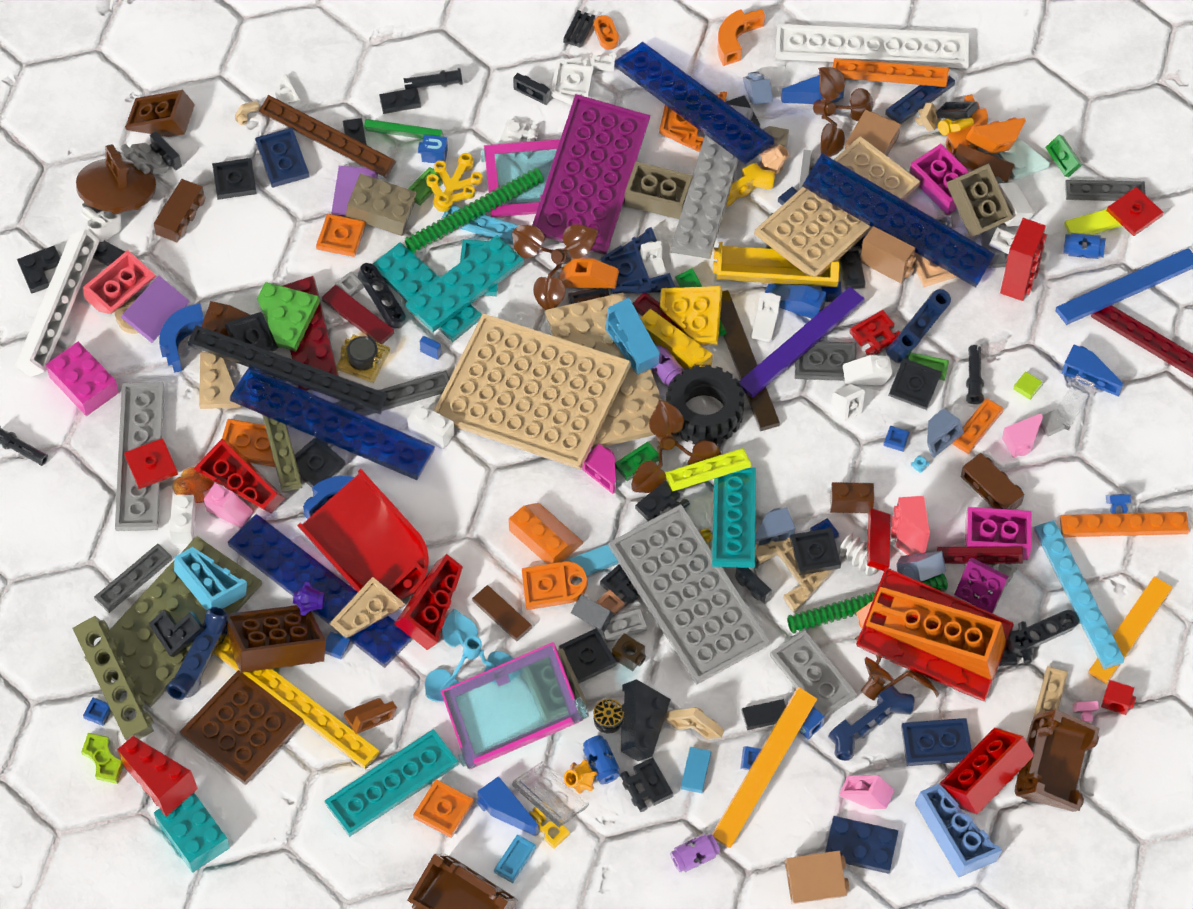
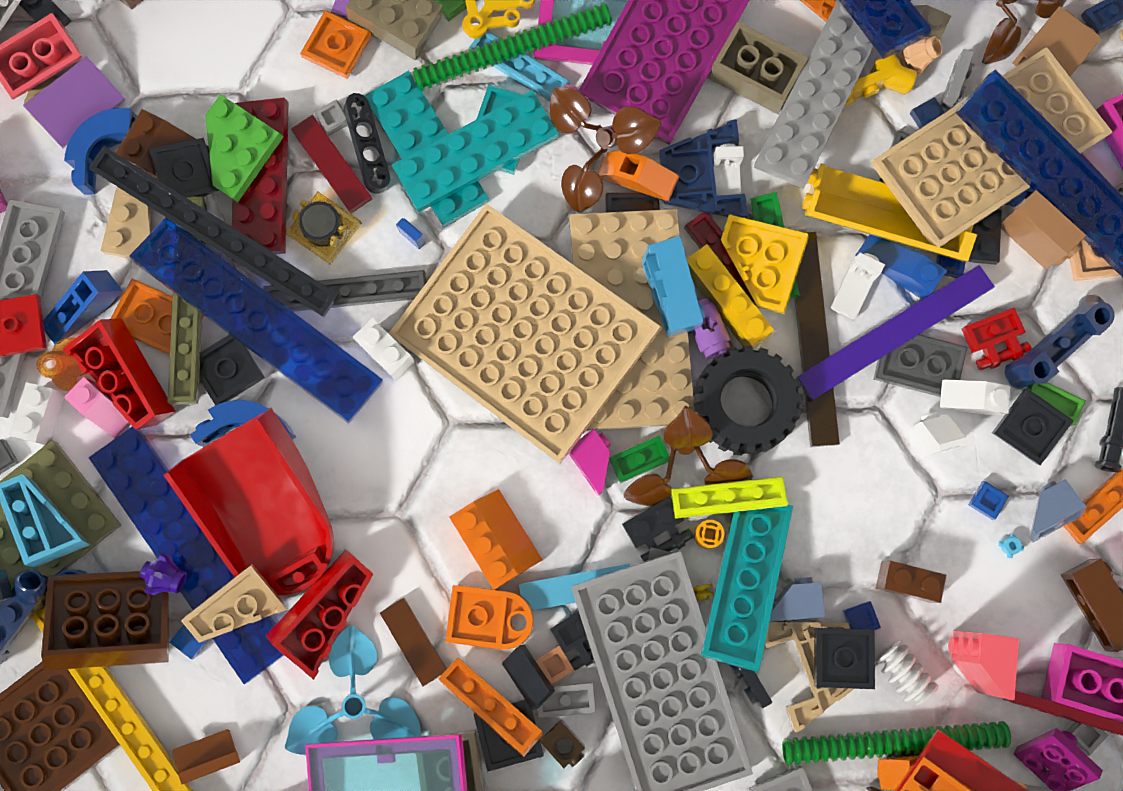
camera: 15 degrees right, 20 degrees up
(195, 441) = (81, 303): none -> blue slope
(570, 633) = (491, 706): none -> orange plate
(700, 498) = (704, 536): none -> light orange wheel
(878, 539) = (933, 663): red tile -> none
(922, 565) = (979, 714): sand blue slope -> none

